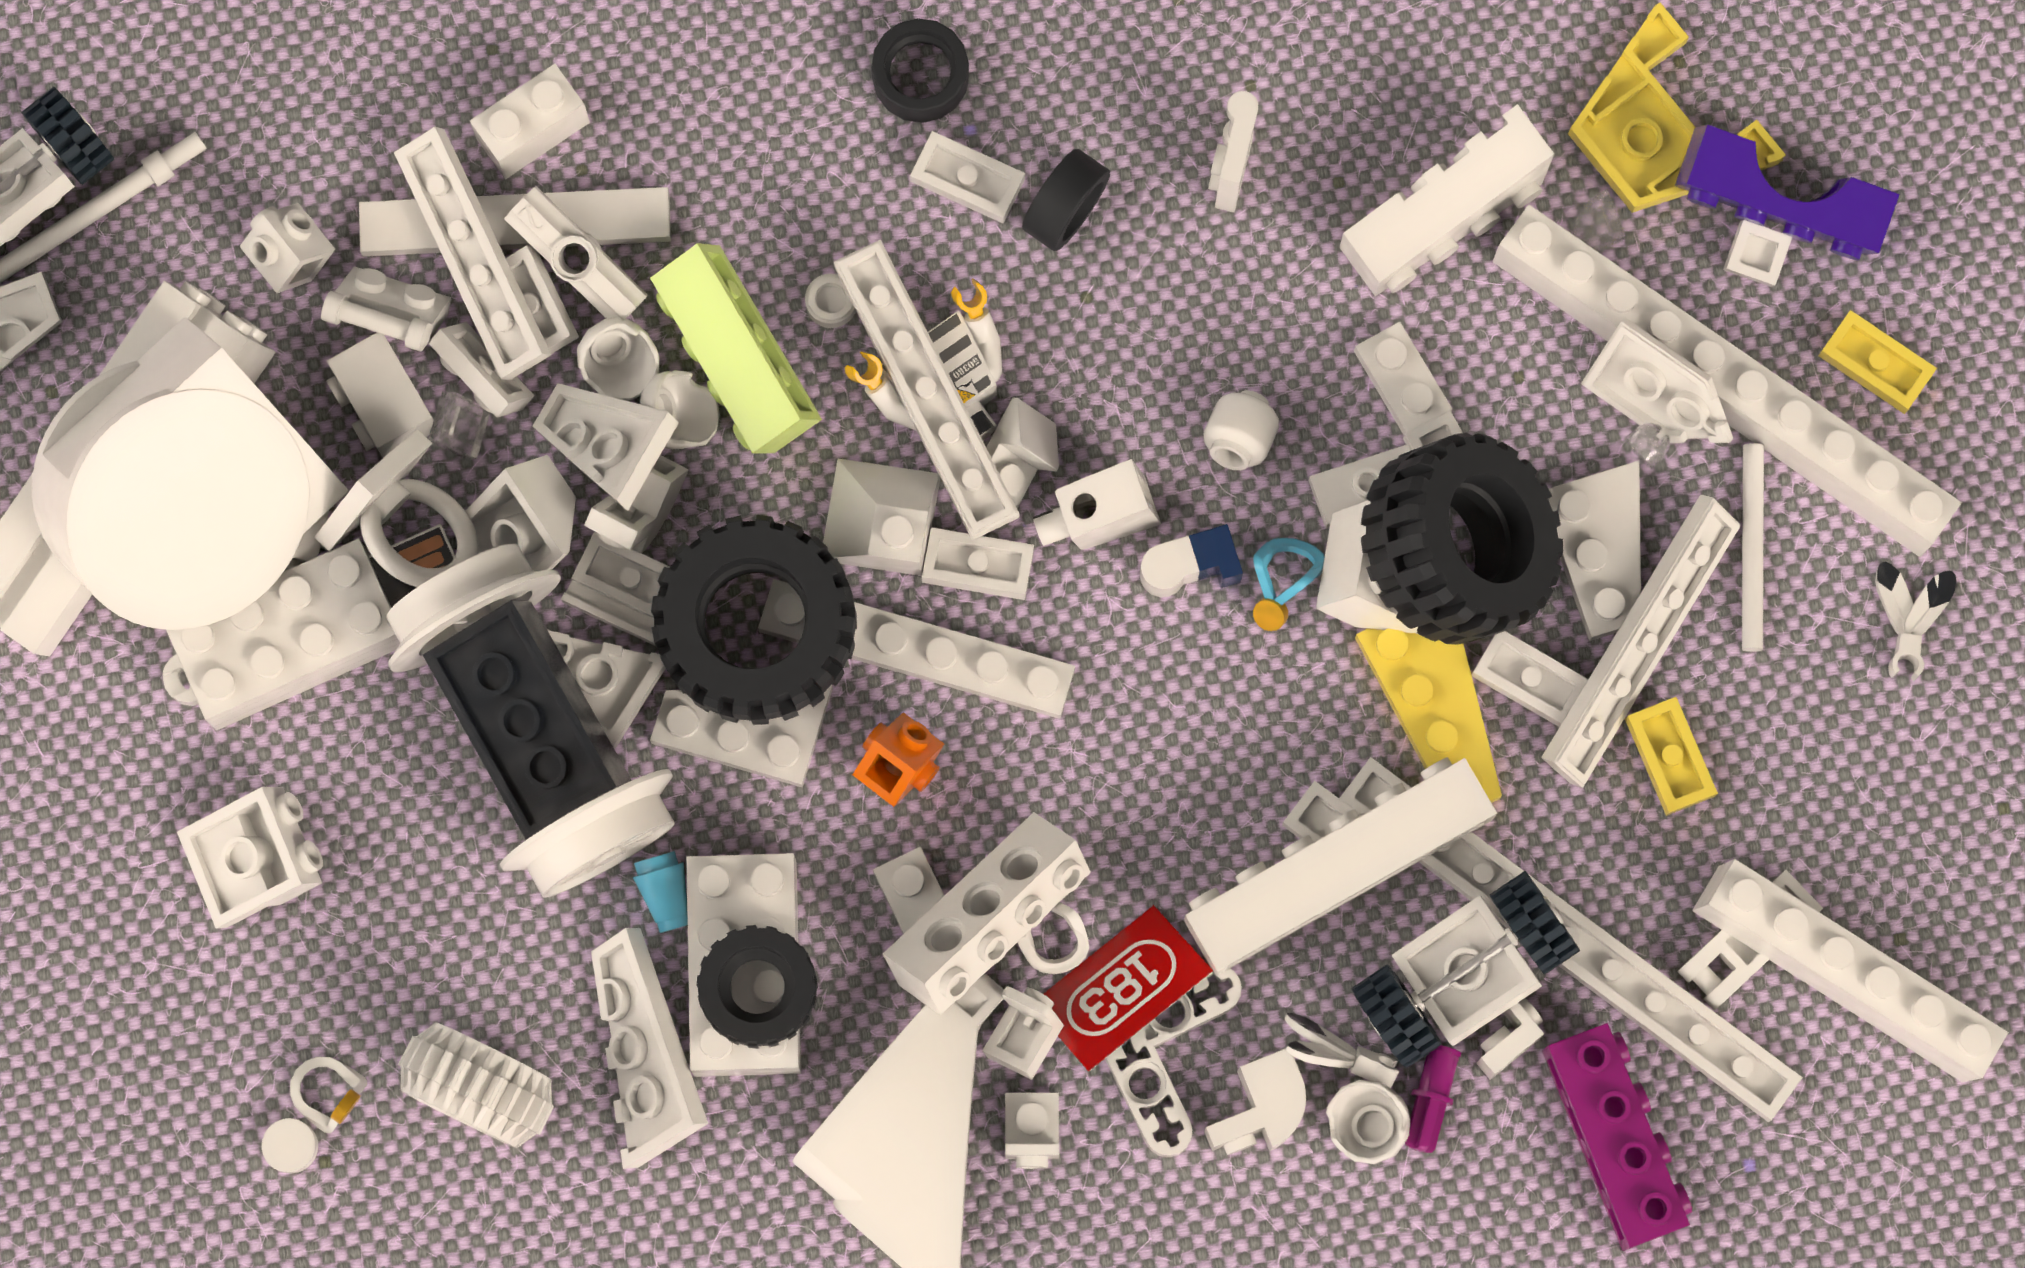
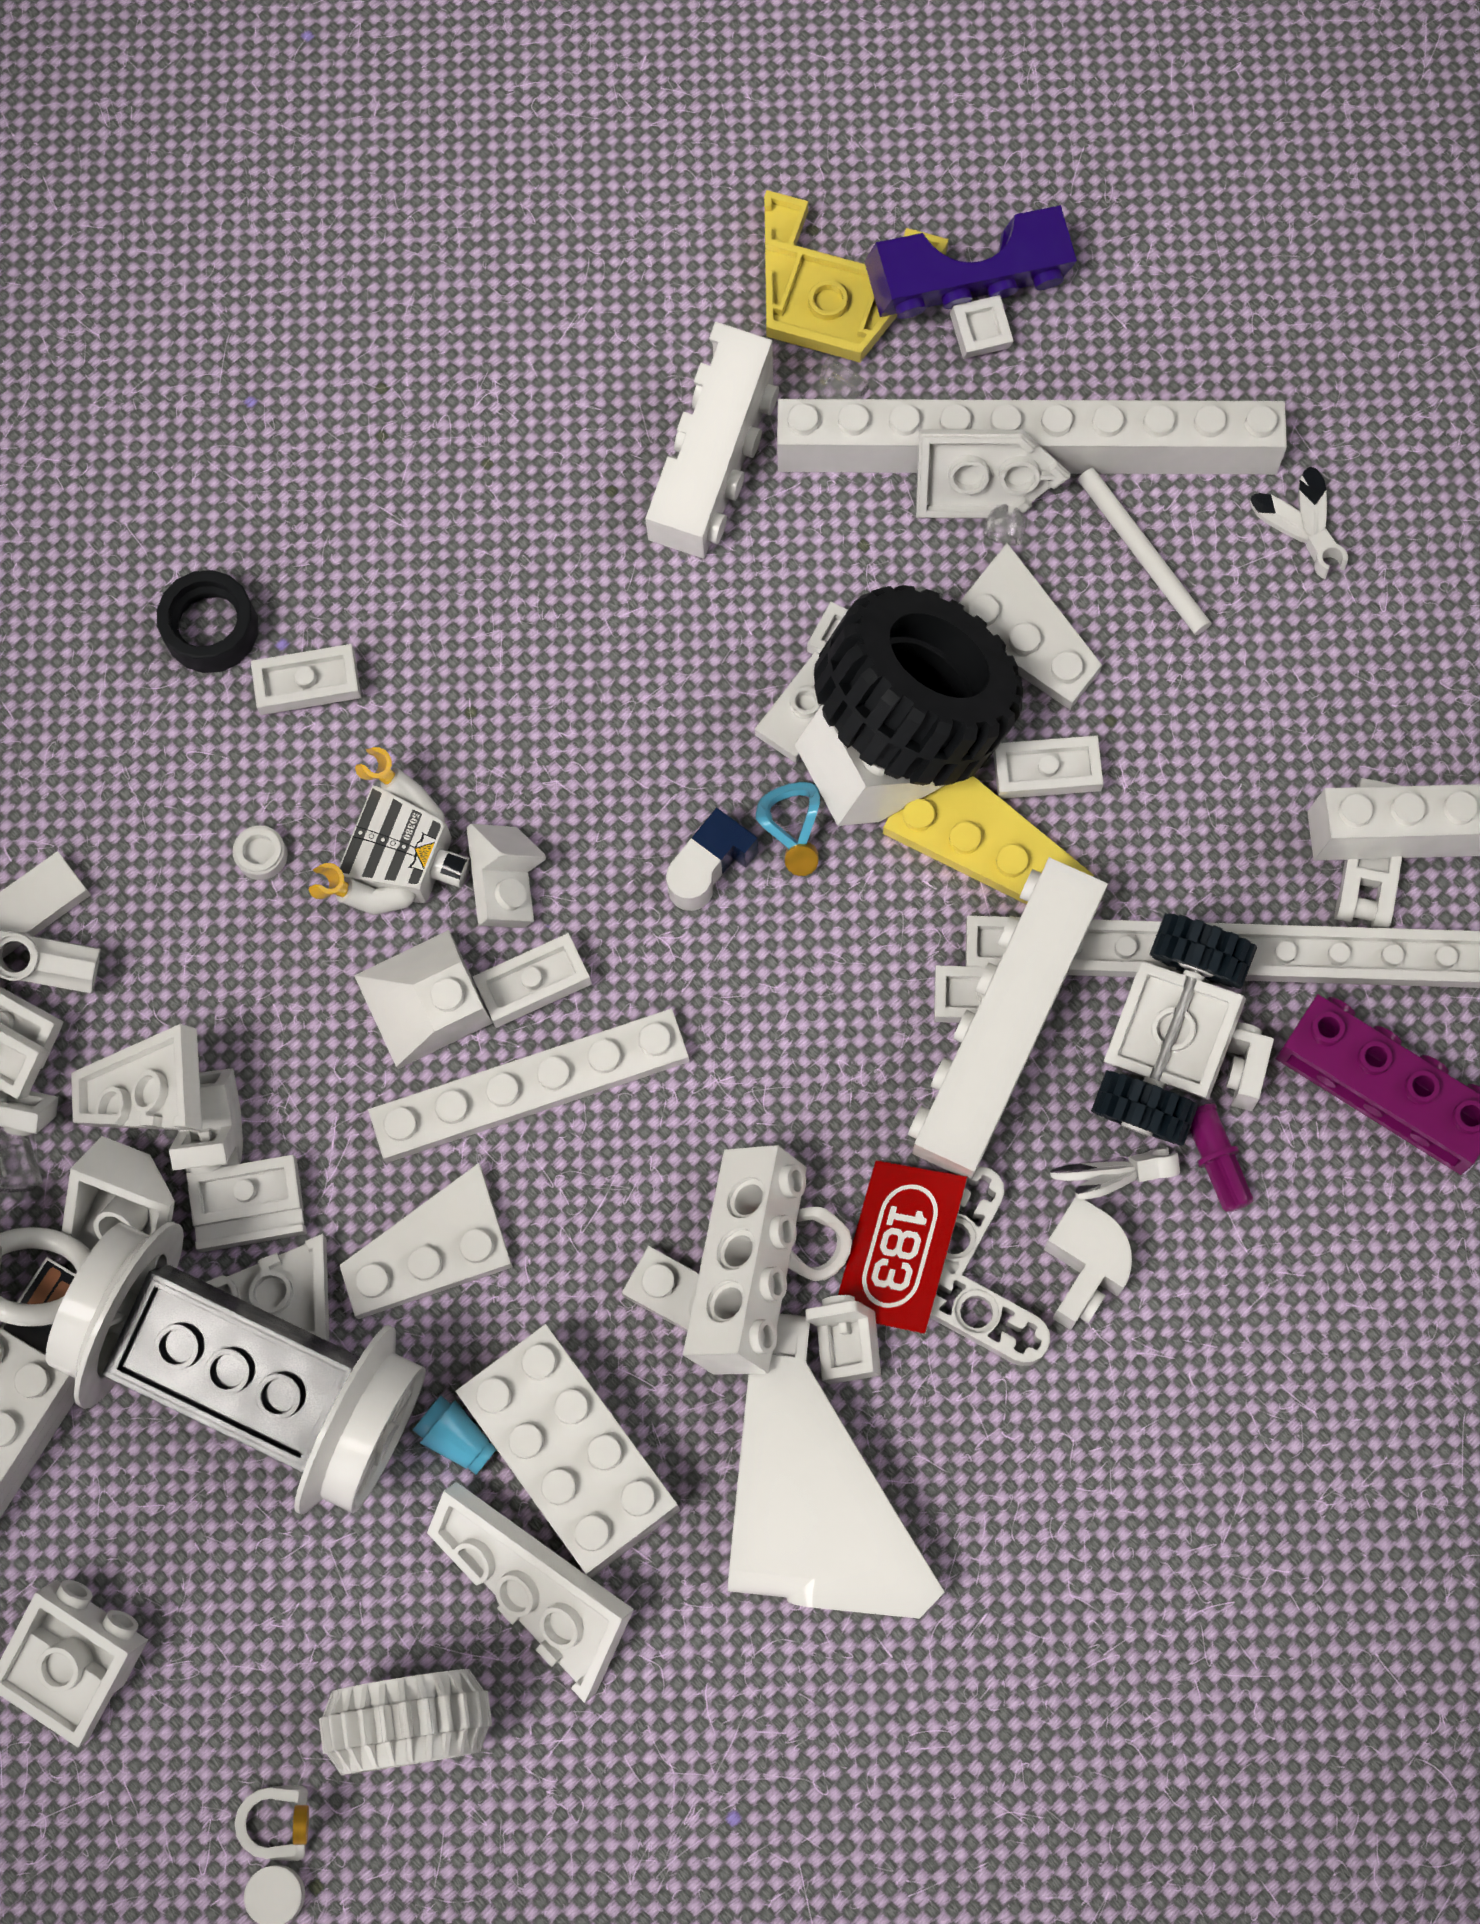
camera: 30 degrees left, 5 degrees down
(617, 358) = (109, 1015): white hair -> none
(687, 403) = (198, 1010): white hair -> none
(734, 349) = (204, 942): yellowish green brick -> none
(742, 550) = (329, 1096): black tyre -> none
(751, 945) = (551, 1452): black tyre -> none
(898, 759) = (579, 1184): orange brick -> none
(926, 389) = (391, 864): white tile -> none
(1031, 1129) = (910, 1417): white bracket -> none
(1066, 199) = (400, 640): black tyre -> none
(1120, 502) = (608, 845): white torso -> none
(1232, 157) = (511, 511): white plate -> none
(1241, 430) = (673, 728): white head -> none
(1368, 1121) = (1184, 1212): white hair -> none
(1402, 378) = (772, 605): white plate -> none
(1641, 641) = (1114, 680): white tile -> none
(1671, 756) = (1203, 752): light yellow plate -> none
(1877, 362) = (1134, 347): light yellow plate -> none

